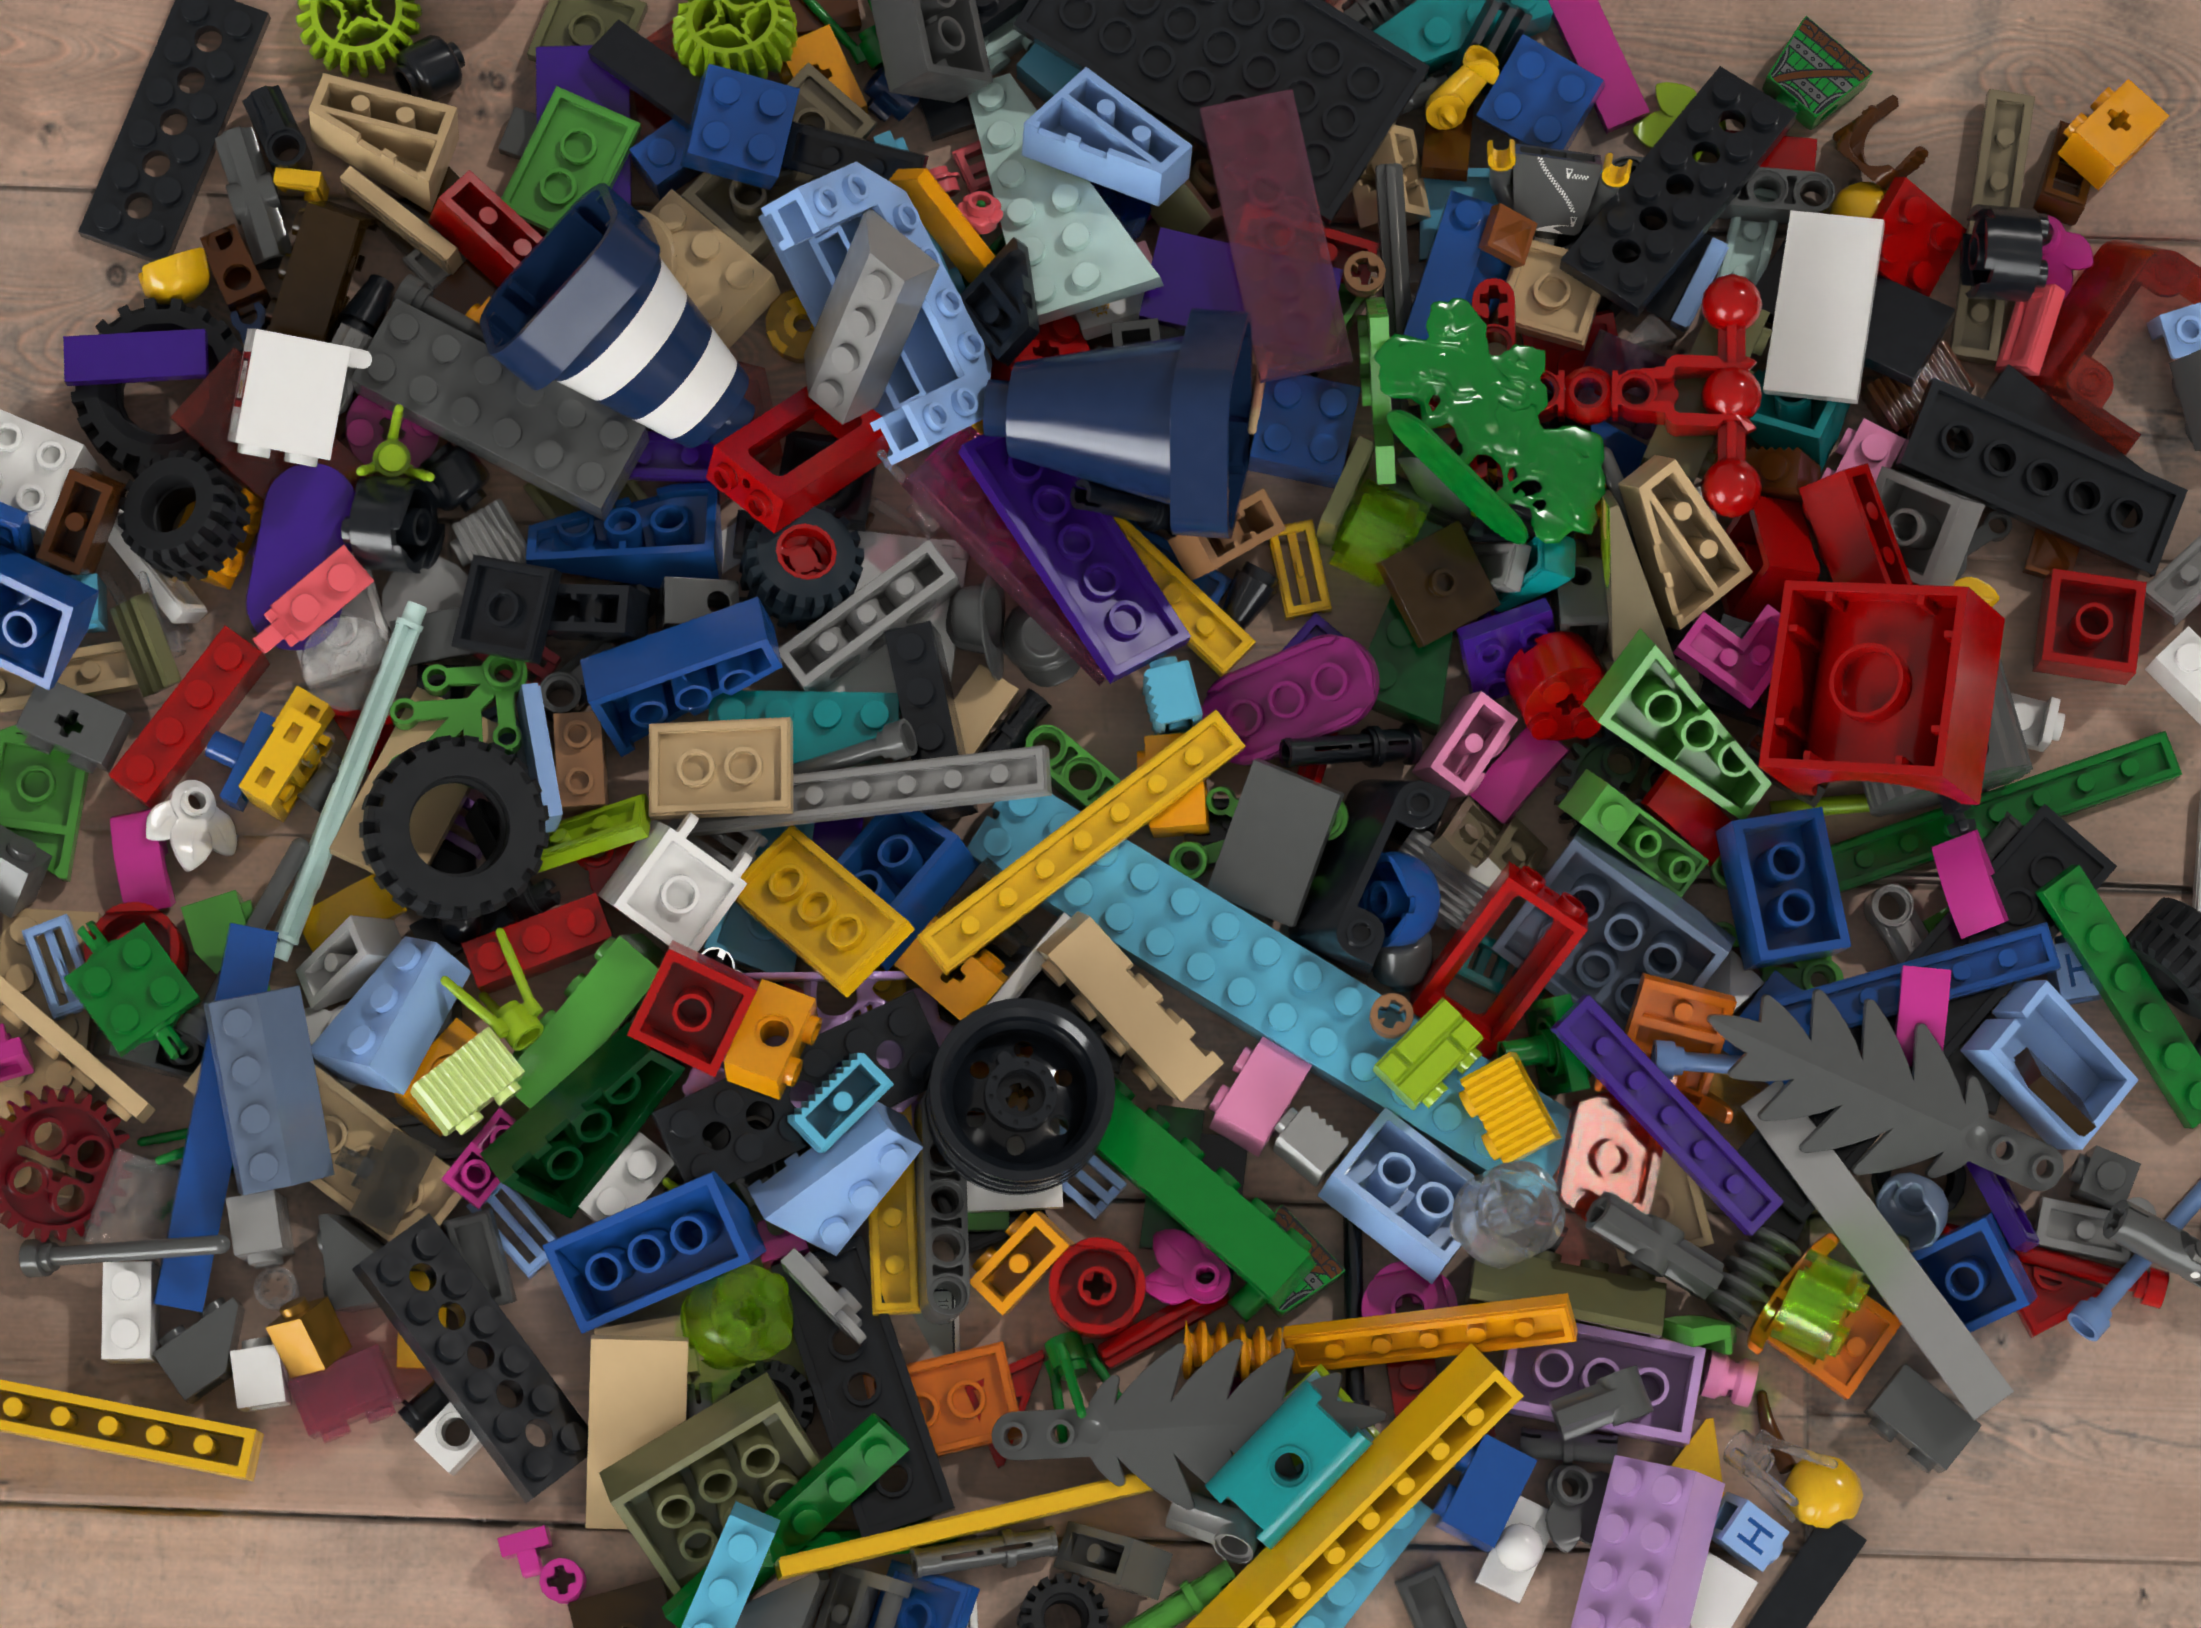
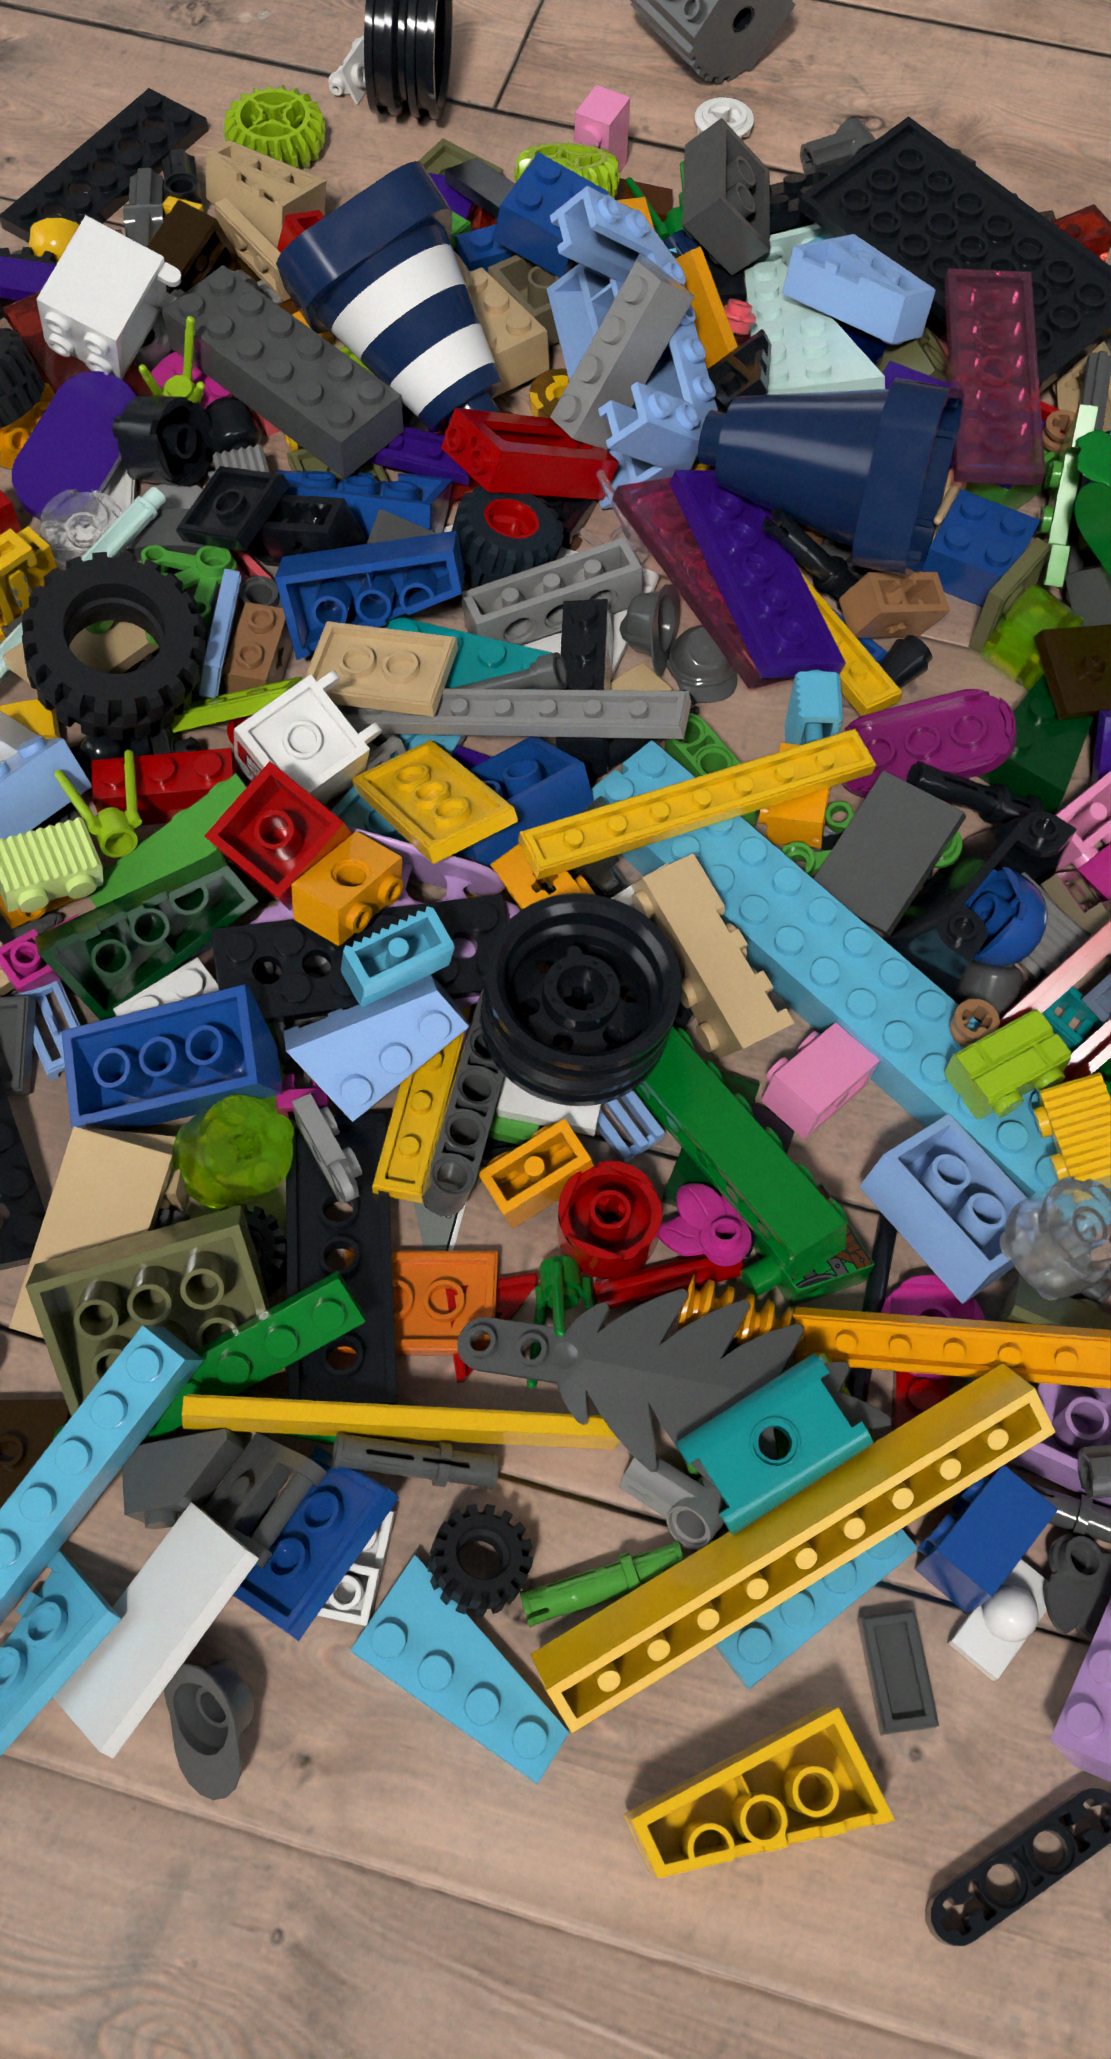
camera: 15 degrees right, 15 degrees down
(313, 600) = (84, 468): coral hinge -> none
(429, 68) = (321, 162): black head -> none
(1113, 1560) = (555, 1509): dark grey slope -> none
(1306, 608) = (967, 658): yellow tile -> none
(1308, 1144) = (861, 1130): light grey brick -> none

